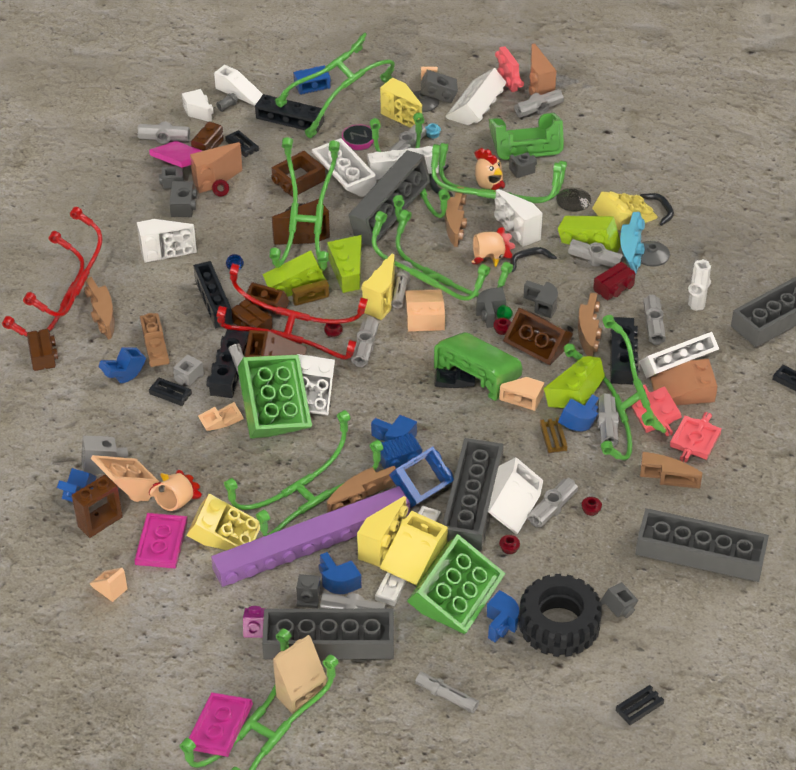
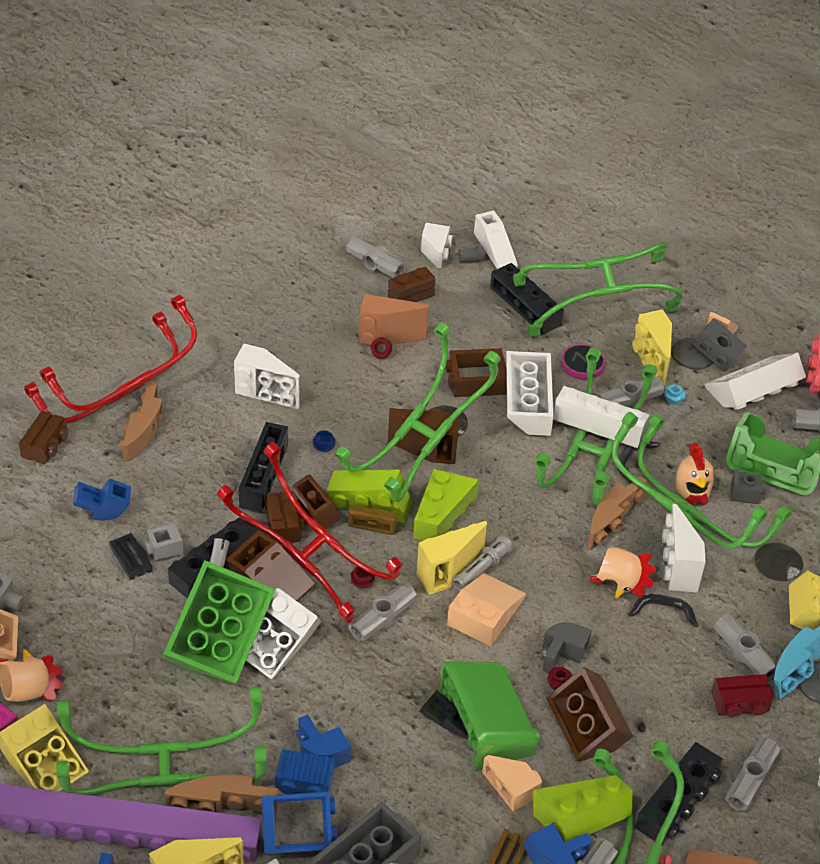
camera: 30 degrees right, 0 degrees up
(154, 339) = (162, 488): medium nougat slope -> none
(170, 174) = (340, 312): dark grey brick -> none
(174, 153) = (364, 282): dark pink tile -> none
(182, 199) = (329, 341): dark grey brick -> none
(222, 418) = (150, 617): light nougat slope -> none
(231, 138) = (450, 319): black tile -> none
(315, 84) = (585, 277): blue brick -> none
(404, 178) = (569, 441): dark grey brick -> none
(428, 275) = (561, 598): bright green bar -> none
(504, 312) = (574, 663): green hinge -> none
(543, 296) = (637, 669): dark grey brick -> none
(589, 325) = (667, 728): medium nougat slope -> none
(590, 230) = (759, 615): lime wedge -> none
(679, 354) = (744, 841): white brick -> none

